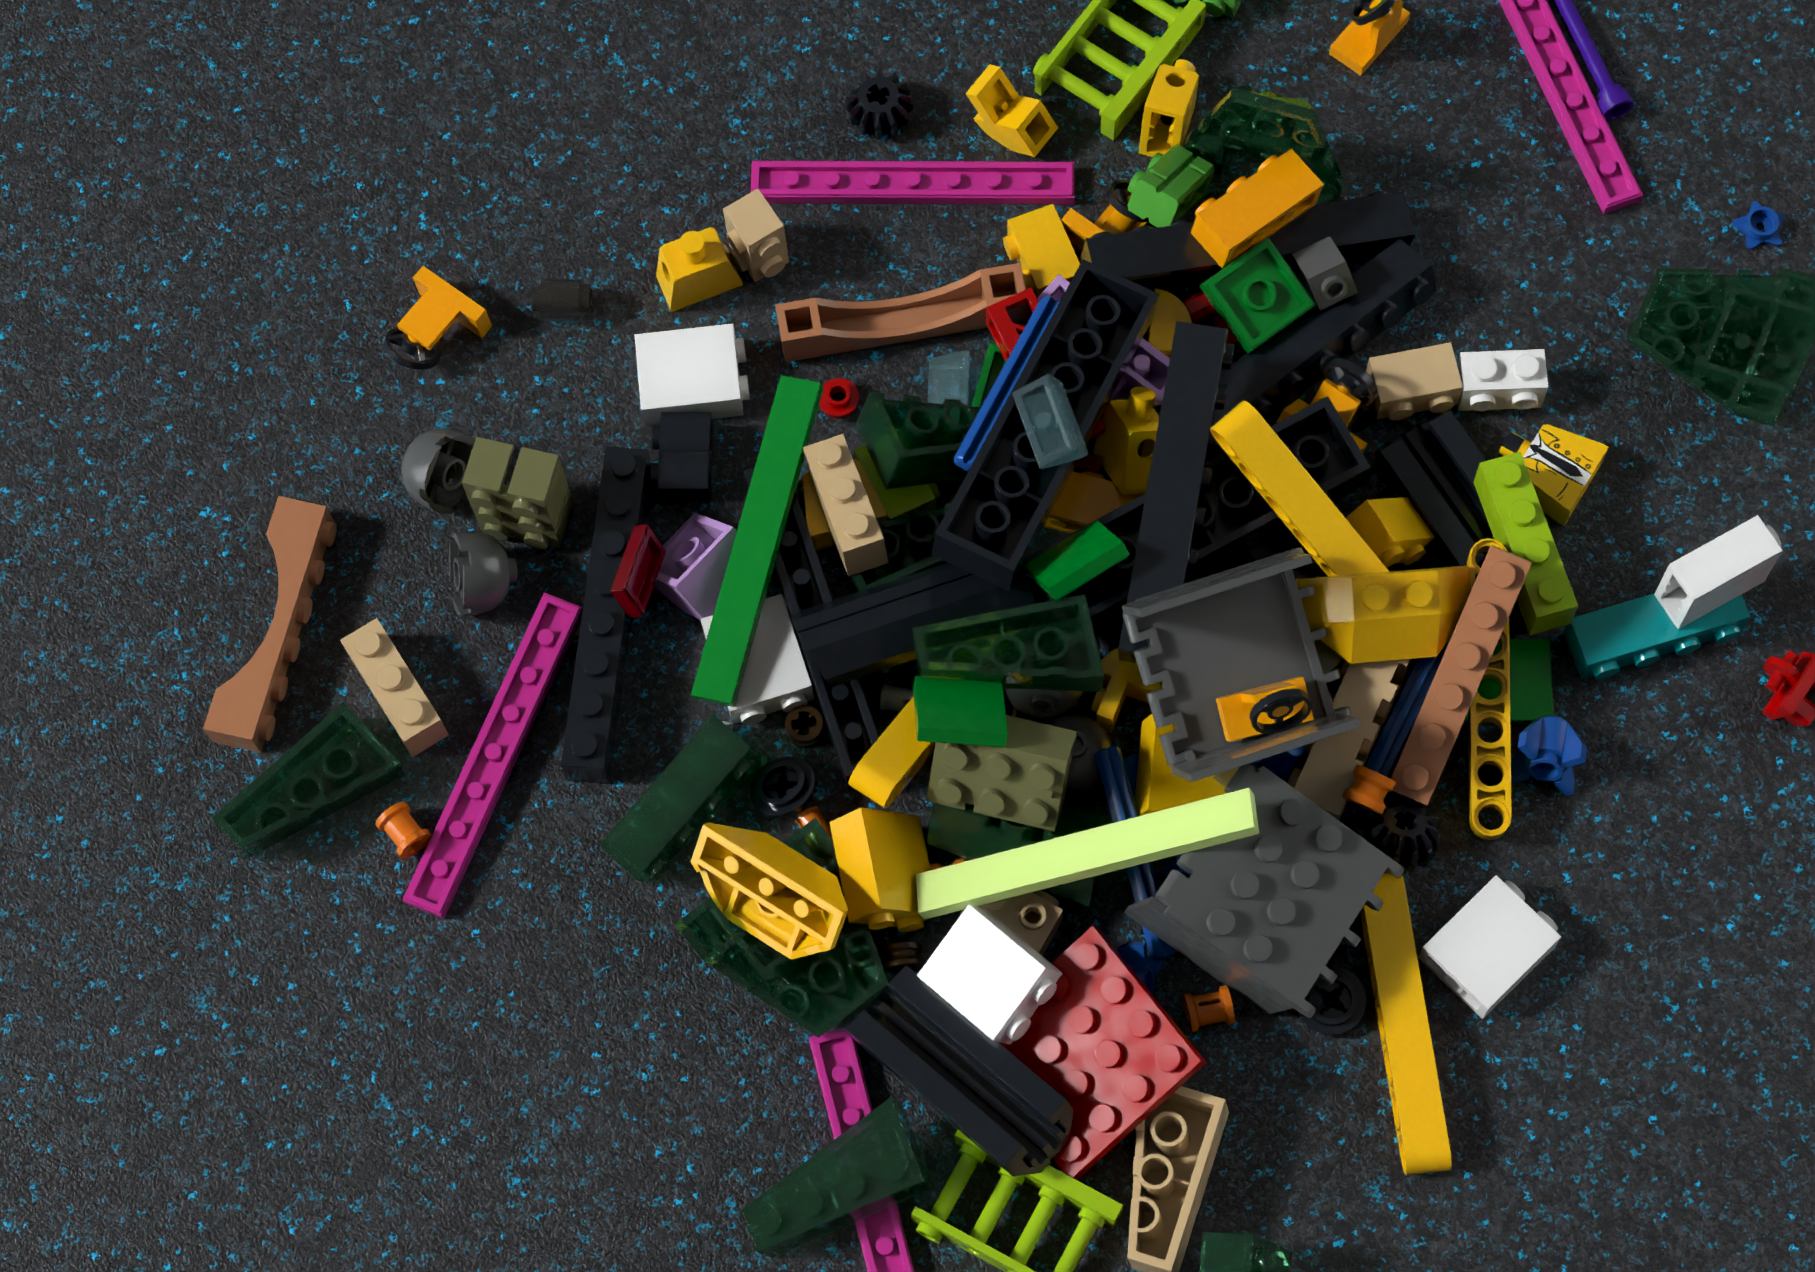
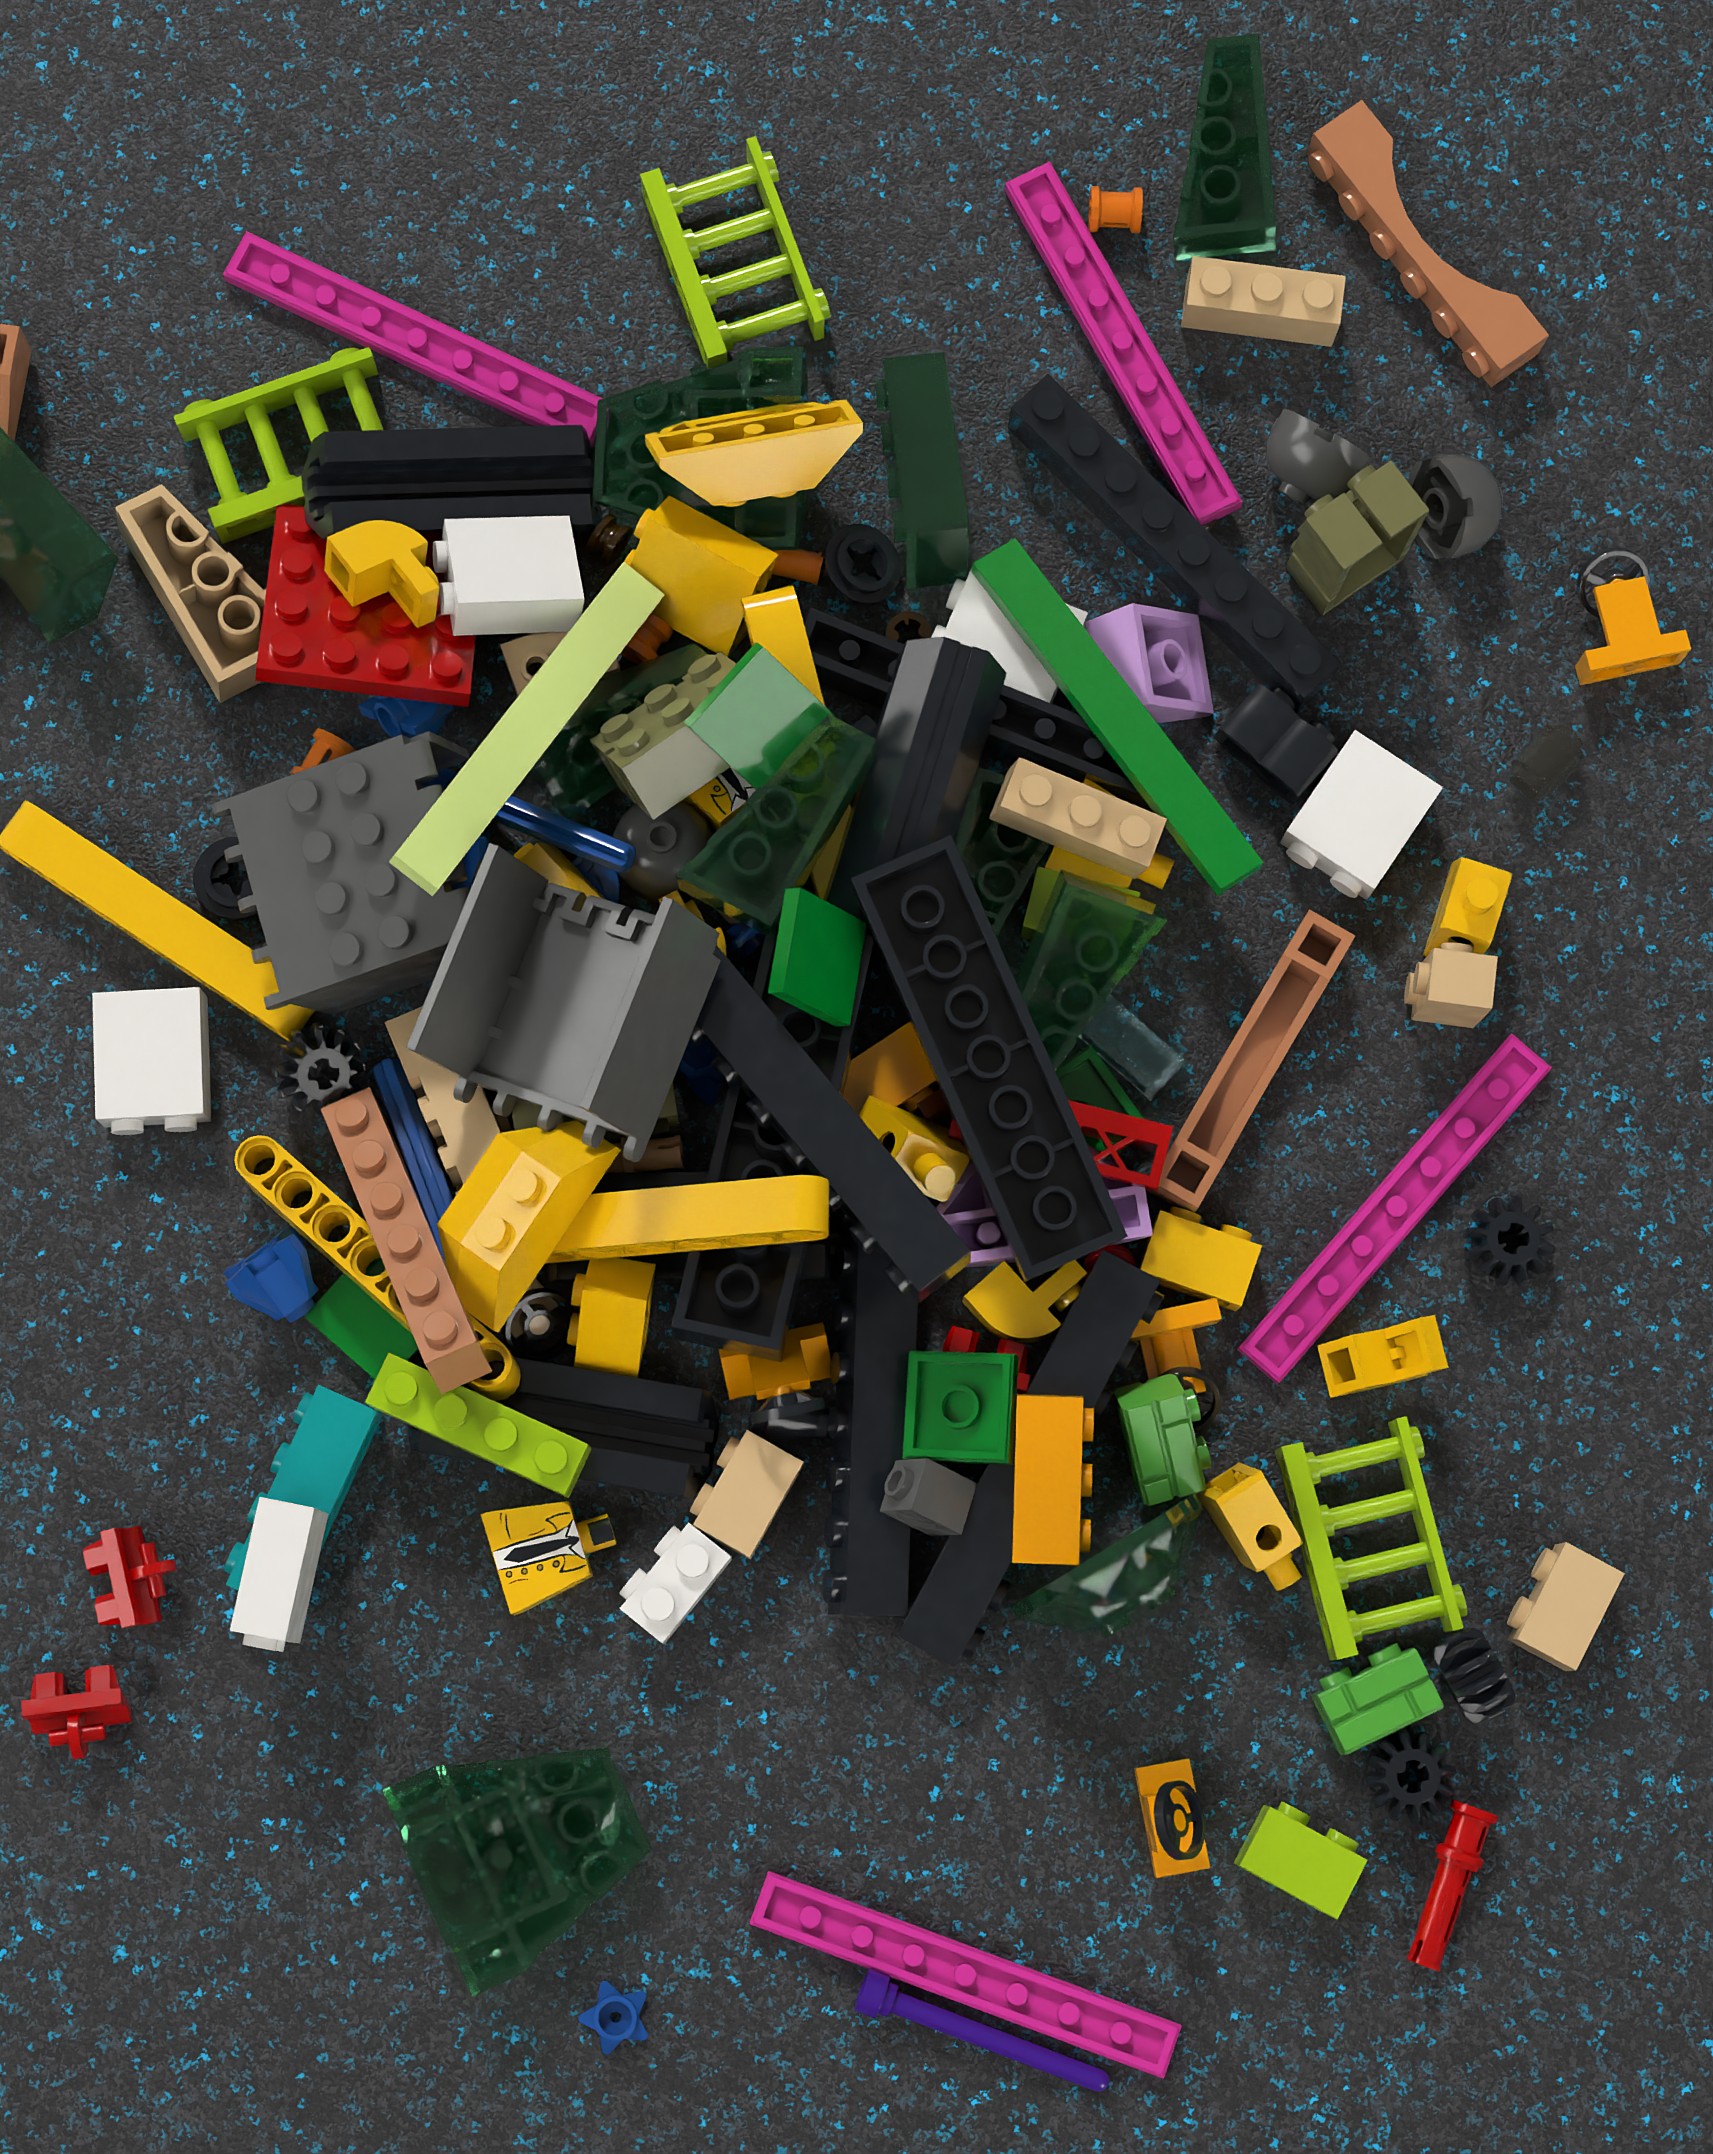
camera: 120 degrees right, 10 degrees up
(638, 571) = (1183, 590): dark red tile -> none
(662, 1080) = (684, 247): none -> lime fence
(842, 408) = (1205, 949): red plate -> none
(844, 1182) = (442, 319): clear green wedge -> none
(1005, 383) = (1068, 1066): blue axle -> none
(1049, 422) = (972, 1044): clear light blue slope -> none
(1049, 1052) = (381, 559): none -> yellow brick
(1265, 709) = (516, 1002): light orange piece -> none
(1369, 789) = (376, 1059): orange wheel -> none

